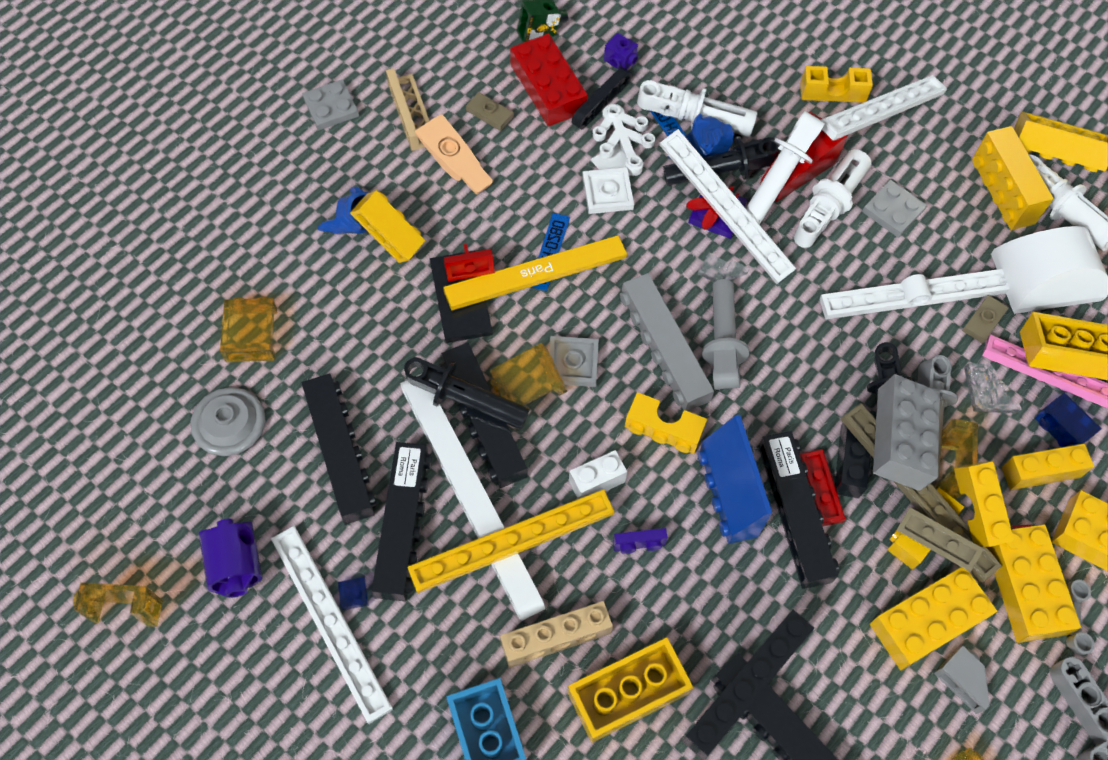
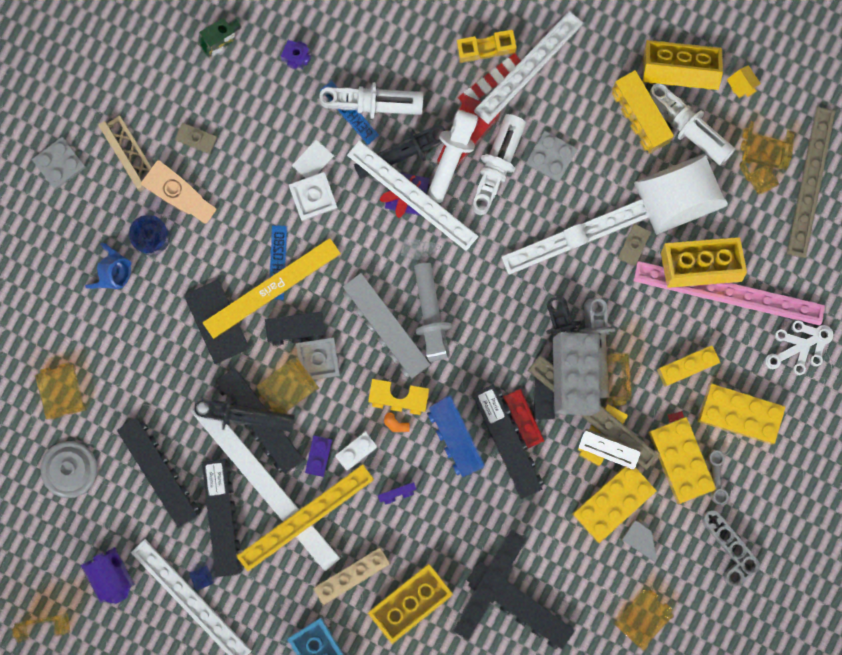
camera: 10 degrees left, 20 degrees up
(388, 226) = (144, 281): yellow brick -> none
(408, 186) = (141, 242): none -> clear blue brick
(469, 264) = (217, 297): red panel -> none
(546, 475) = (318, 456): none -> dark purple plate
(547, 79) = (238, 97): red brick -> none
(553, 318) = (295, 328): none -> black brick
(601, 98) = (288, 104): black beam -> none
(614, 115) = (313, 137): white plant -> none
(652, 457) = (394, 425): none -> orange arm
(710, 135) = (384, 132): blue helmet -> none
(987, 390) = (640, 310): clear wing -> none
(990, 520) = (637, 419): yellow arch -> none
(1067, 422) = (701, 325): clear blue brick -> none

